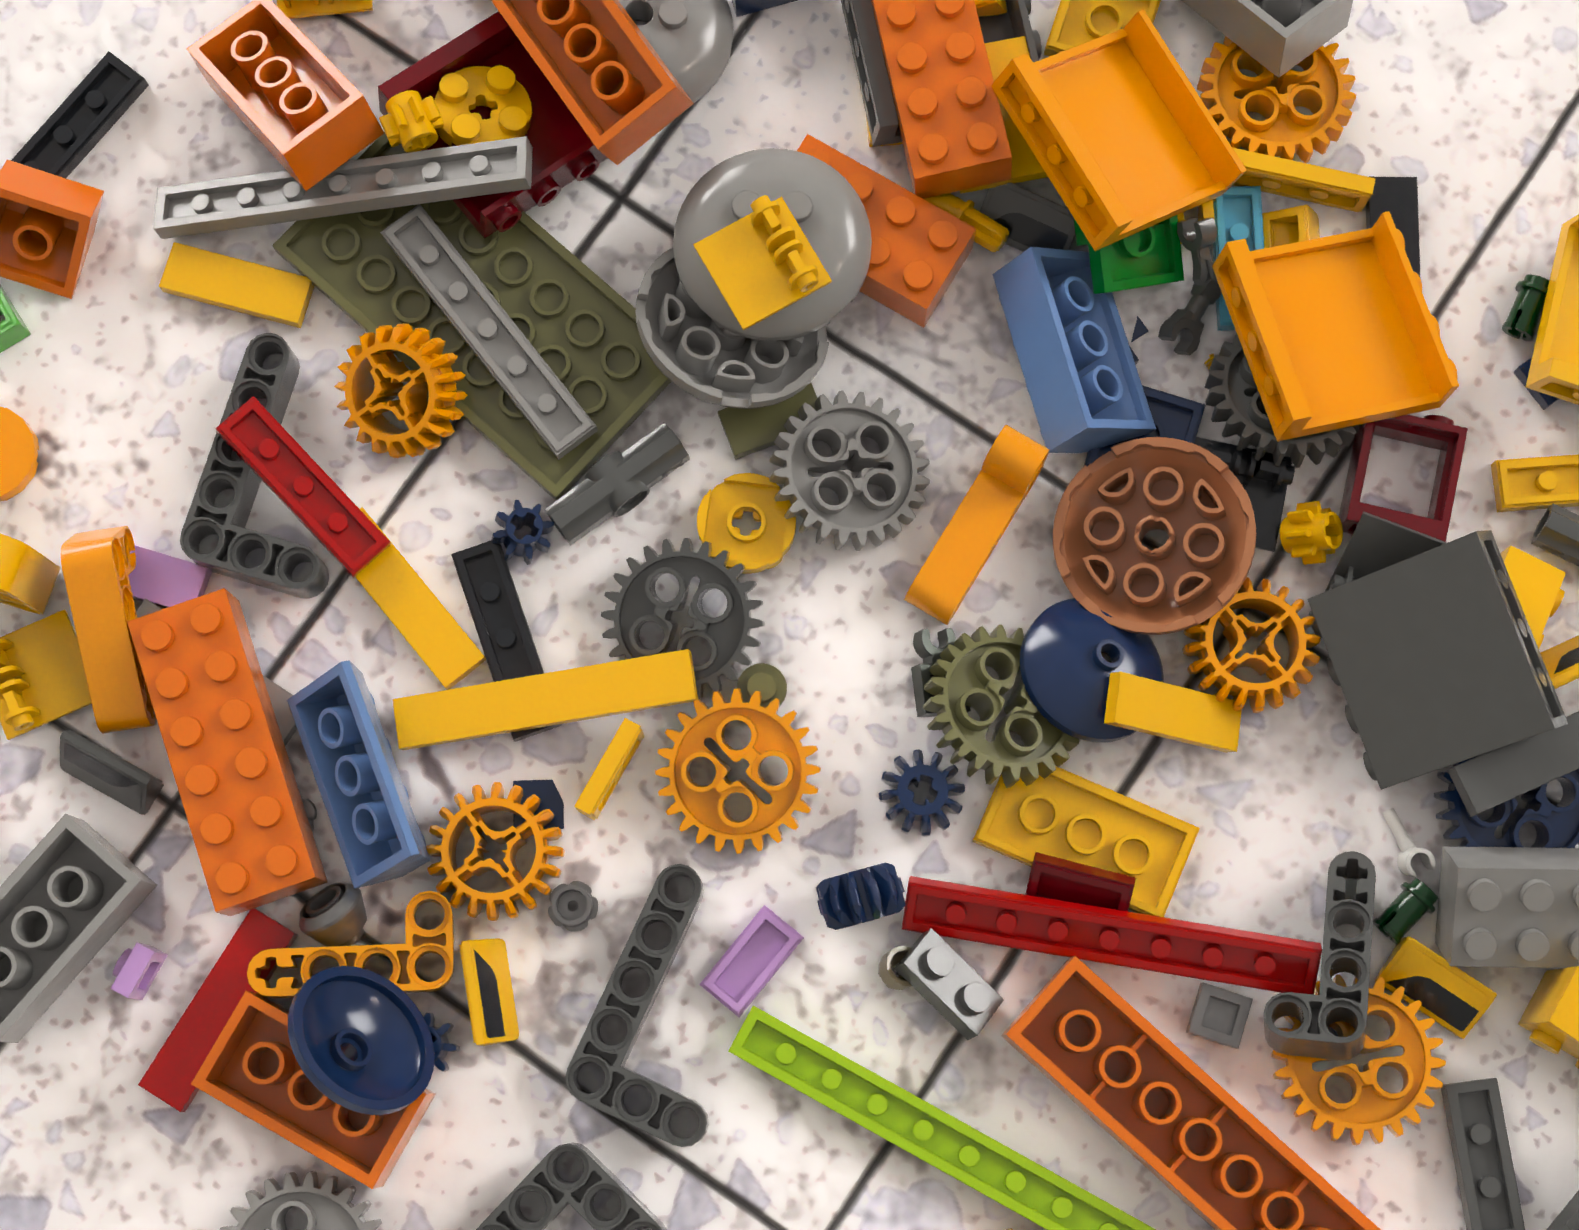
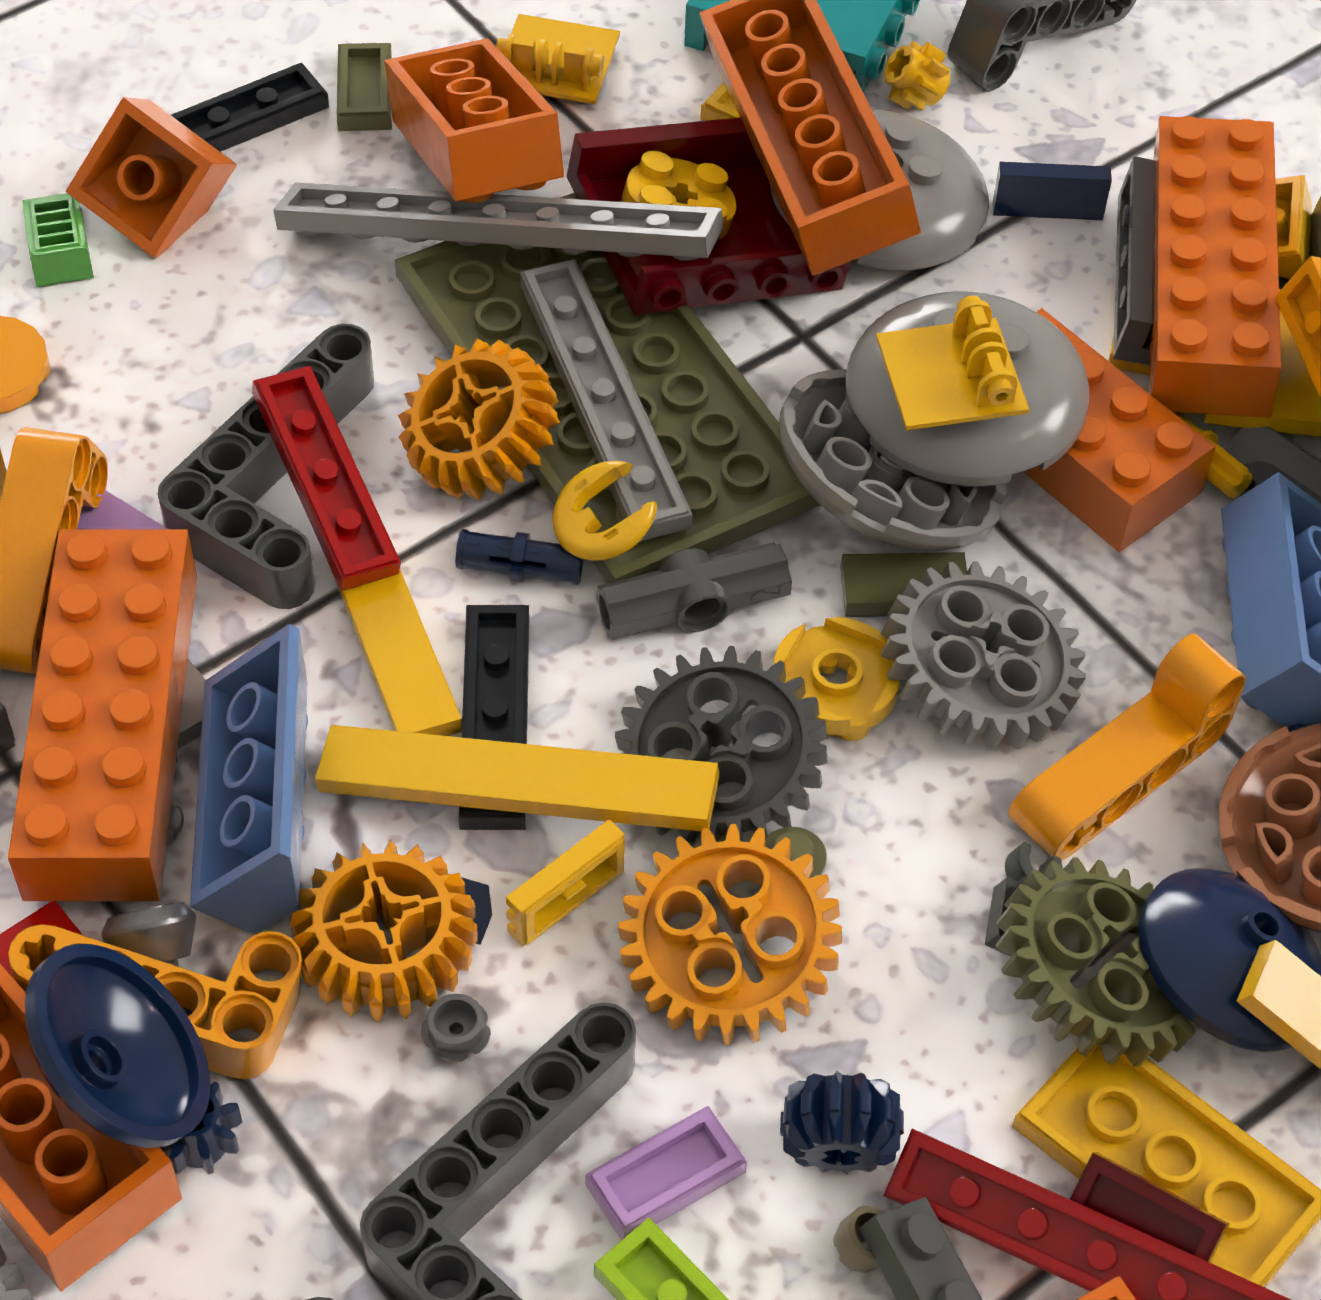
camera: 15 degrees right, 25 degrees down
(164, 44) = (363, 87): none -> olive tile
(237, 285) = (339, 291): yellow tile -> none
(411, 121) = (598, 170): yellow gear -> none
(474, 495) = (517, 557): none -> dark blue pin
(489, 991) = (305, 1093): yellow slope -> none
(512, 467) = (577, 527): none -> yellow head
(515, 521) = (561, 602): dark blue gear -> none
(904, 797) = (982, 1053): dark blue gear -> none

